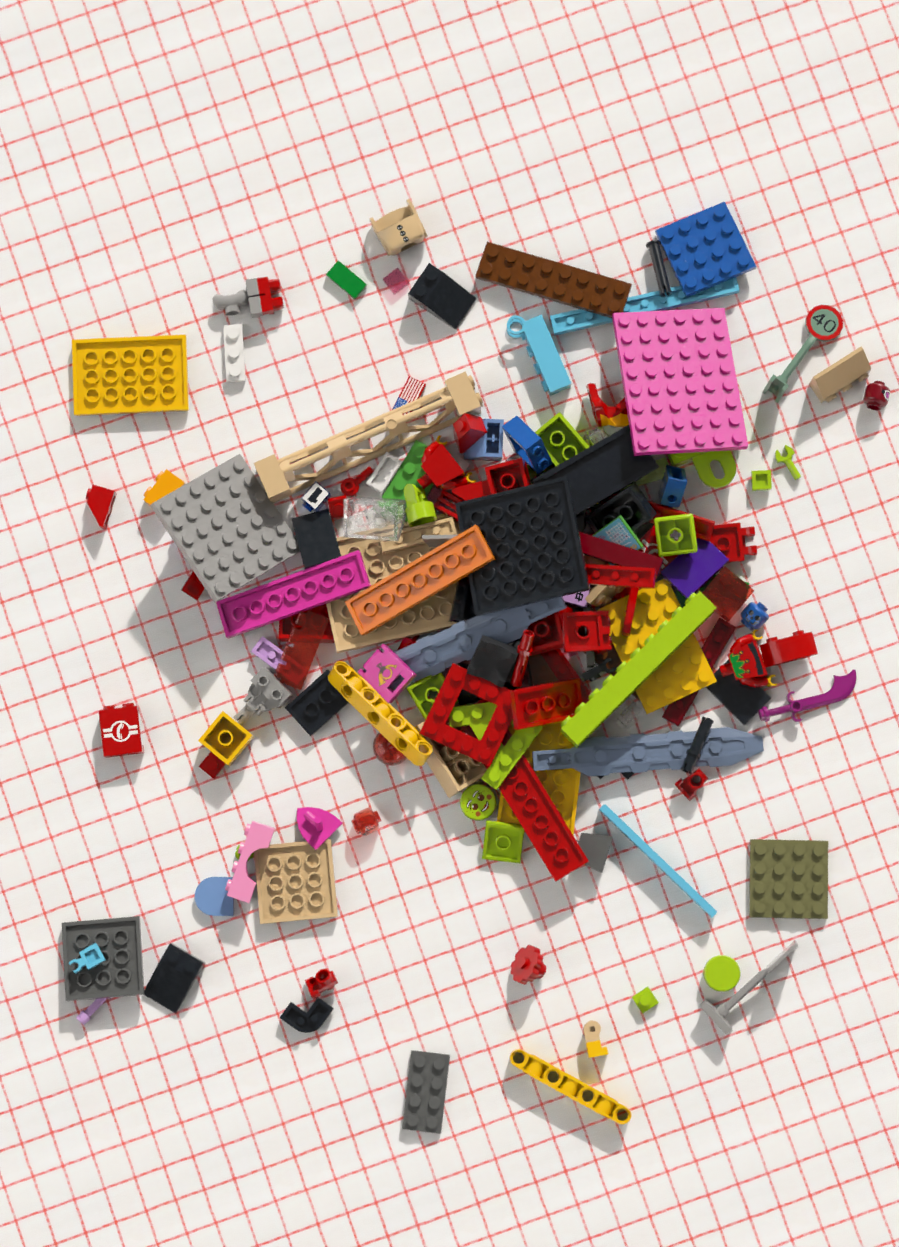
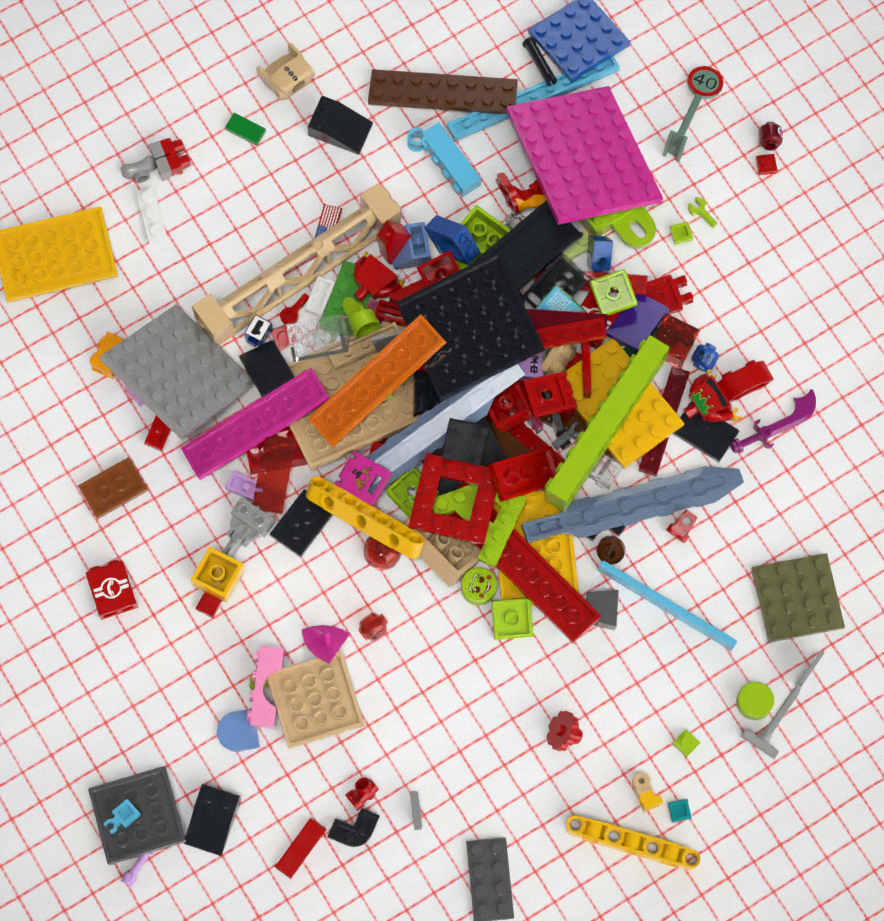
camera: 20 degrees left, 10 degrees down
(101, 503) = (48, 376): red slope -> none
(142, 628) = (113, 488): none -> dark orange plate
(252, 1022) = (300, 848): none -> red tile
(369, 1010) = (416, 815): none -> light grey tile
(395, 281) = (293, 121): clear pink tile -> none
(524, 651) = (493, 432): red pin -> none
(615, 794) = (611, 549): none -> reddish brown plate
(623, 1064) = (679, 811): none -> teal tile
(693, 753) = (678, 493): black pin -> none
(841, 375) = (732, 123): tan slope -> none
(865, 424) = (766, 164): none -> red plate

